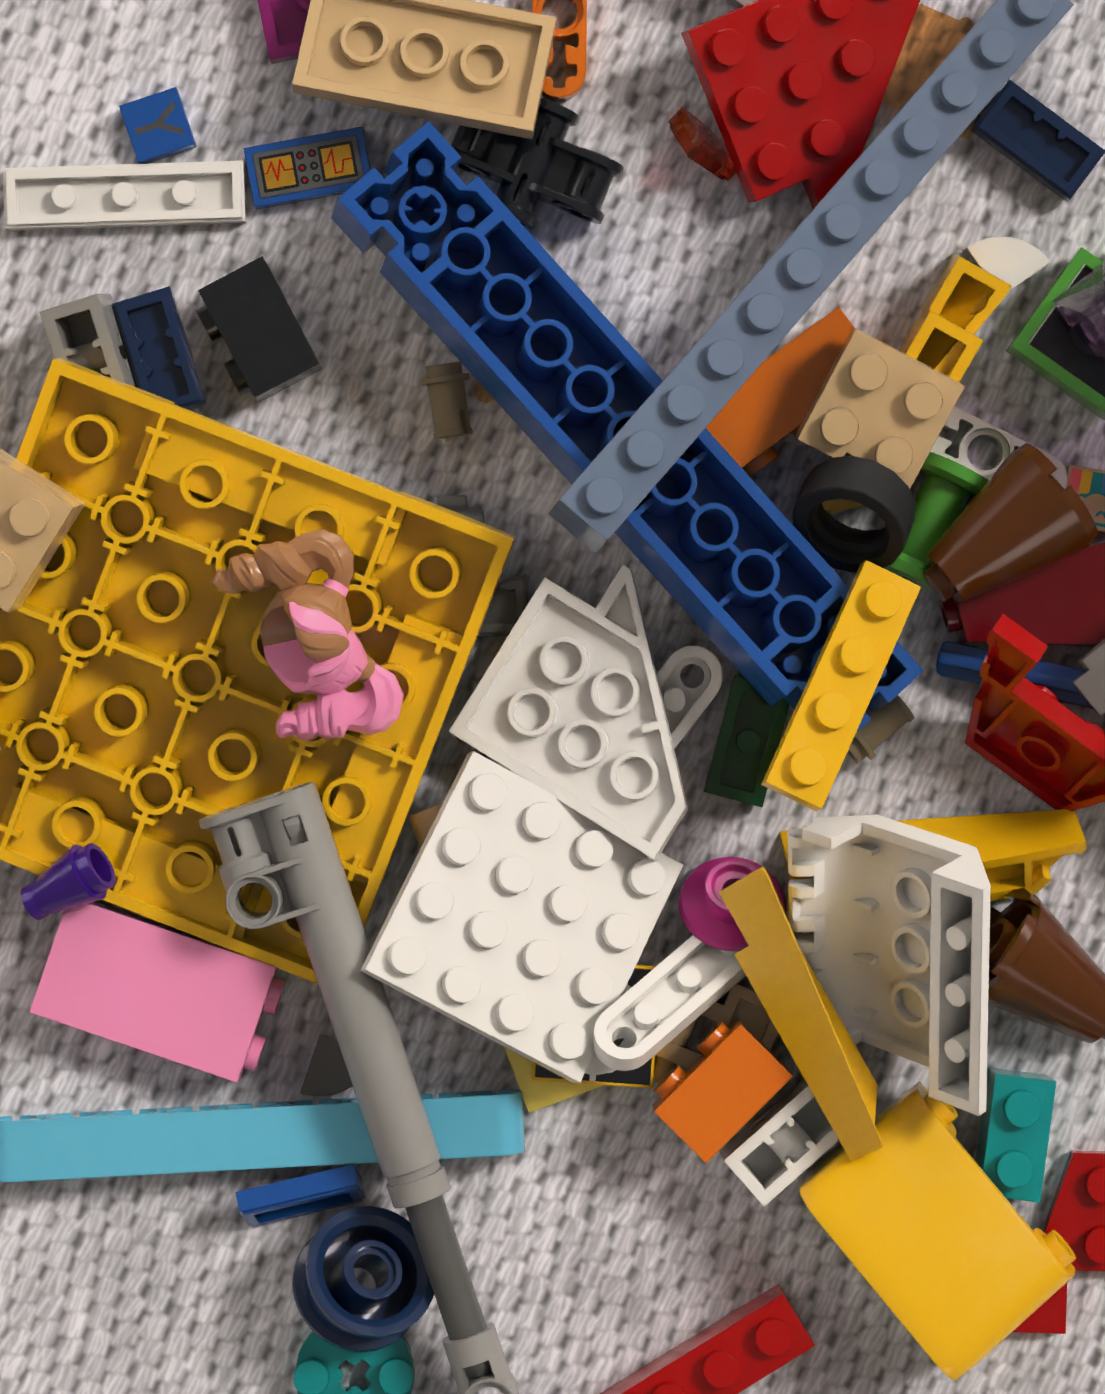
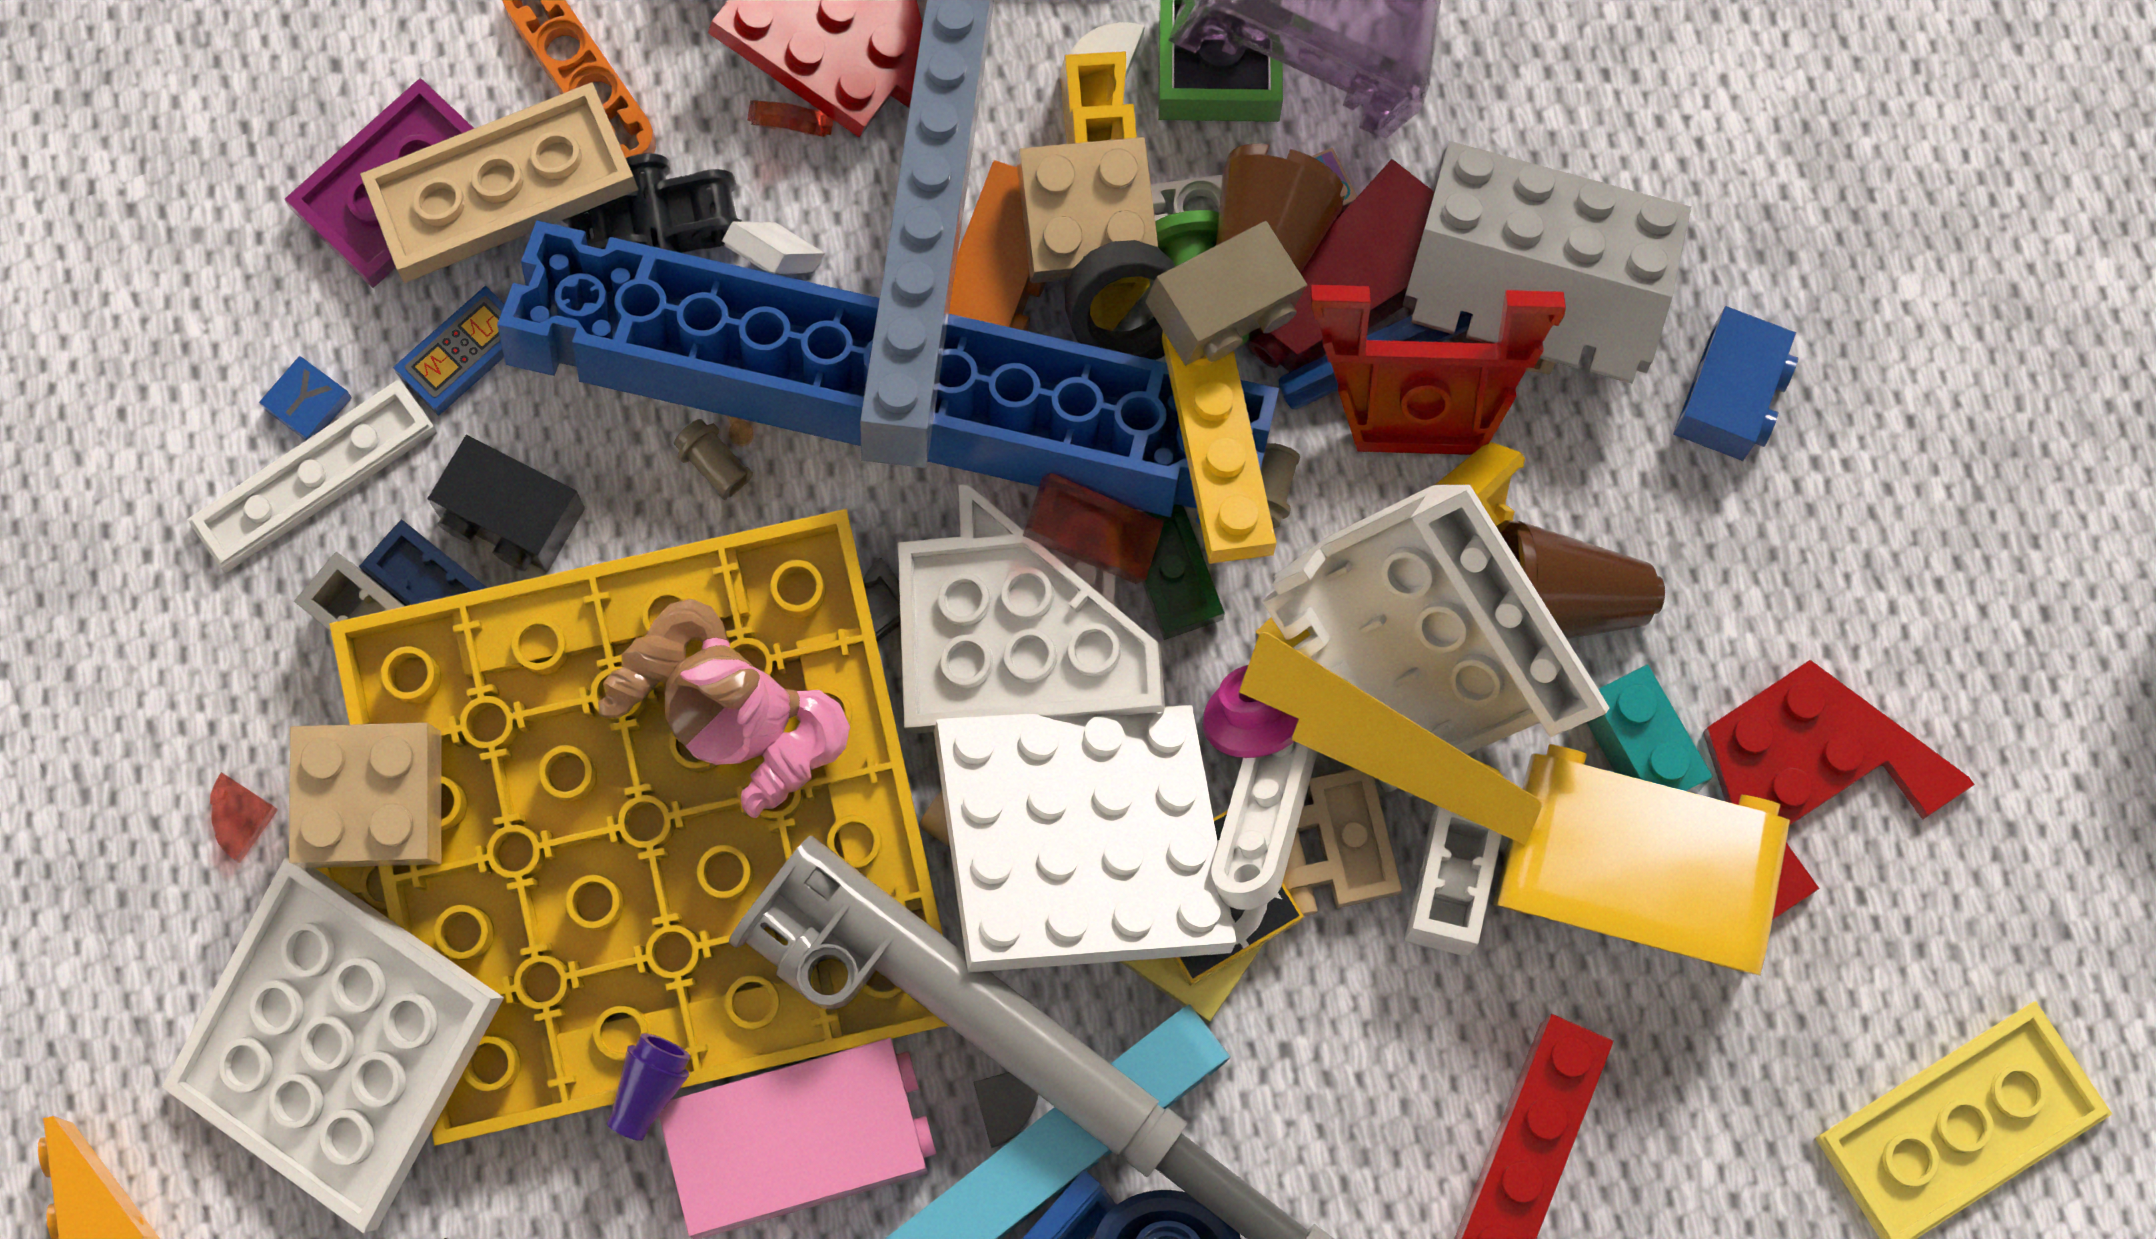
camera: 35 degrees left, 15 degrees down
(609, 261) = (772, 247): none -> white tile
(702, 676) = (1093, 528): none -> clear red tile
(720, 1088) = (1364, 870): orange brick -> none
(927, 581) = (1226, 295): none -> dark tan brick

